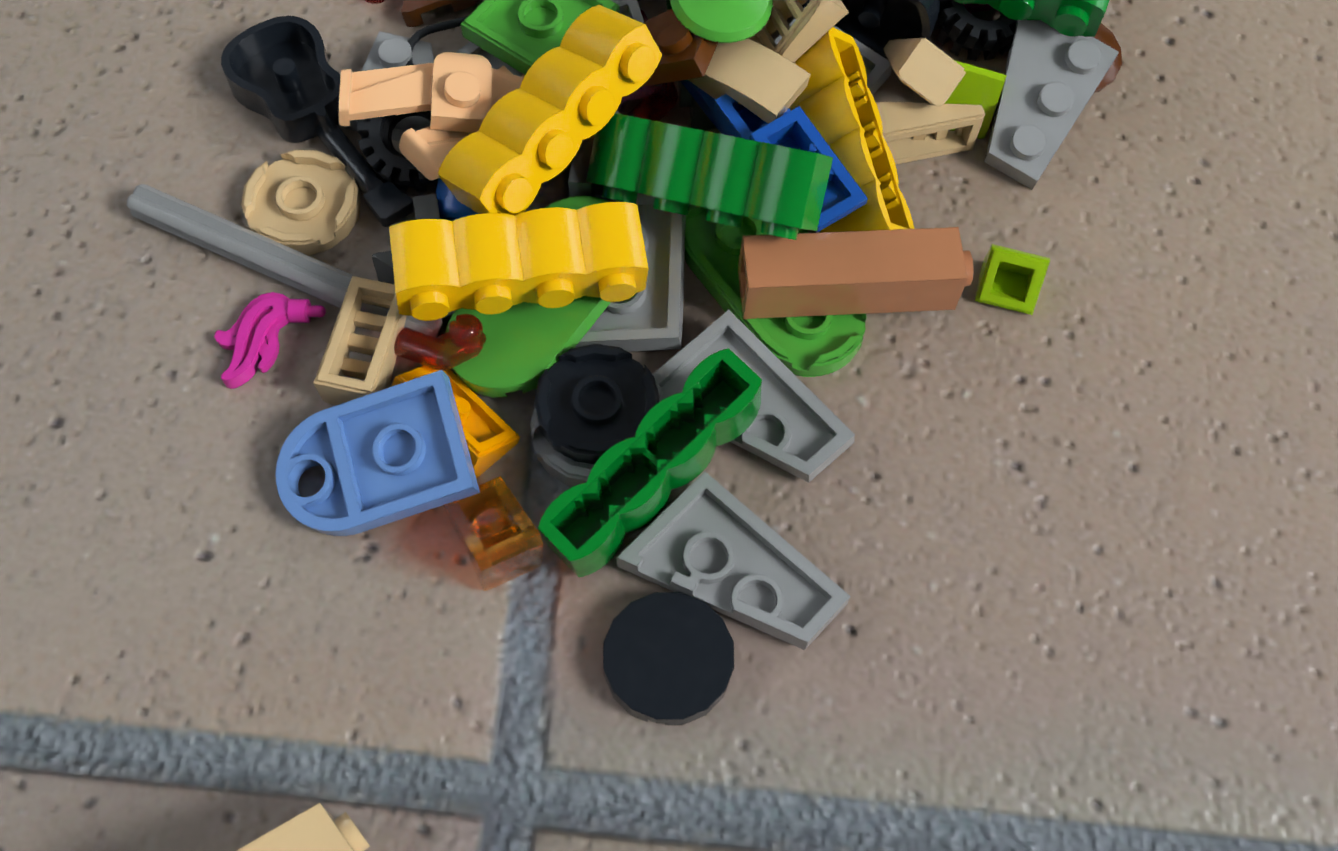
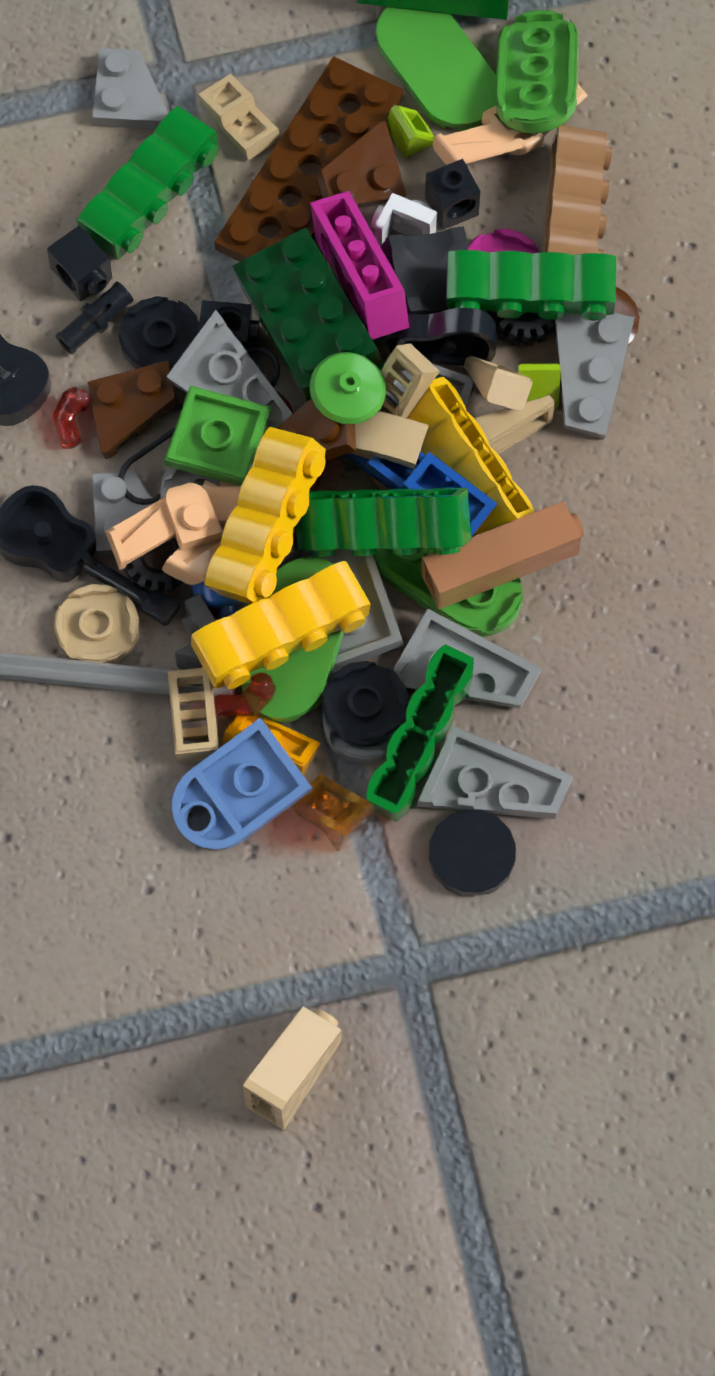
camera: 15 degrees left, 5 degrees up
(256, 334) = (112, 731): dark pink piece -> none
(1011, 279) = (609, 518): lime slope -> none

